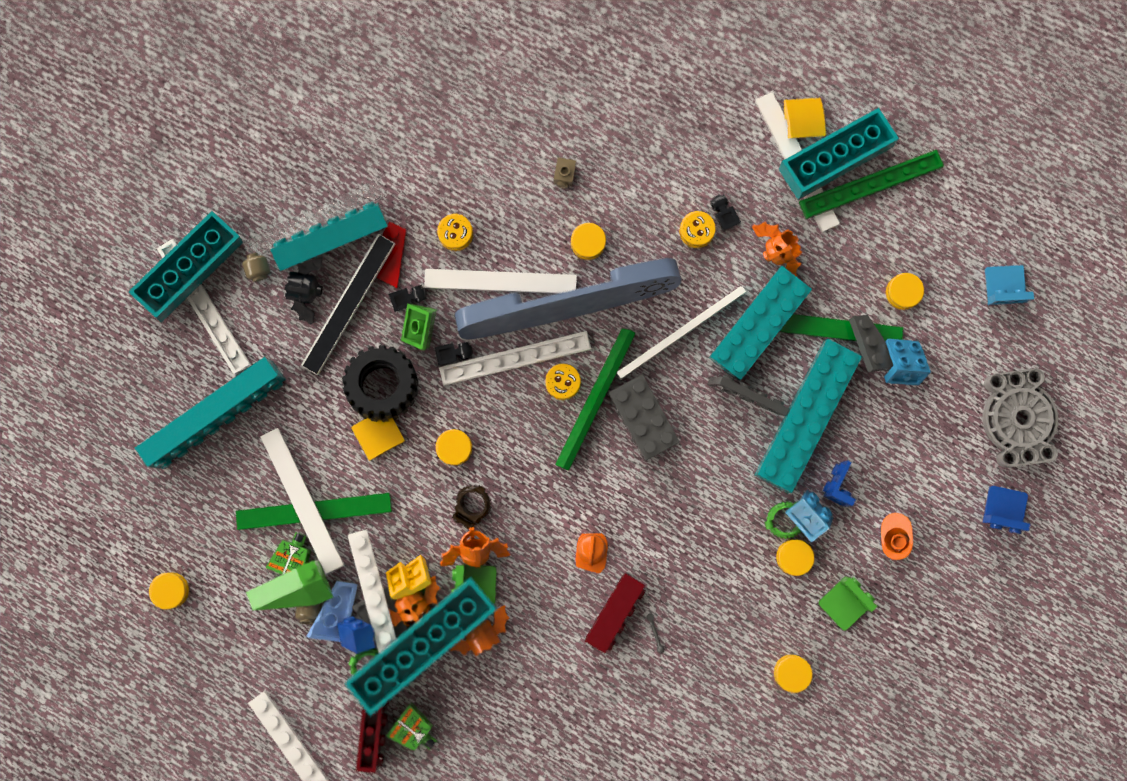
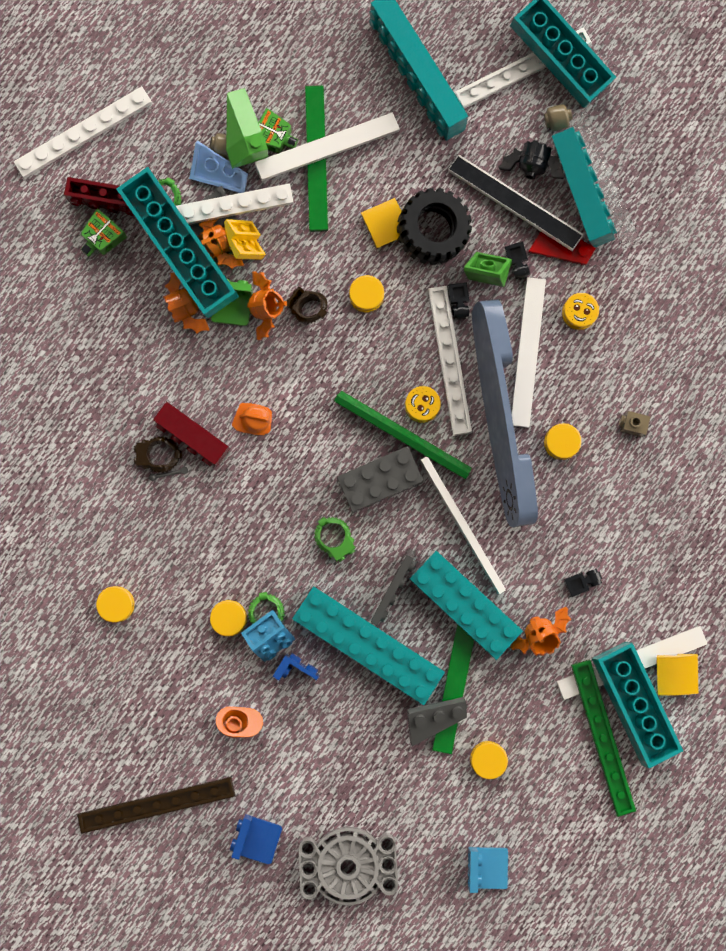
camera: 90 degrees right, 0 degrees up
(169, 590) = (253, 20): yellow head -> none
(356, 635) = (194, 186): blue brick -> none
(642, 660) = (143, 454): none -> dark brown piece
(697, 229) = (567, 552): yellow head -> none
(717, 451) = (344, 548): none -> bright green piece
(847, 602) = (178, 665): bright green bracket -> none
(908, 361) = (414, 753): dark azure bracket -> none
(984, 612) = (156, 805): none -> dark brown tile

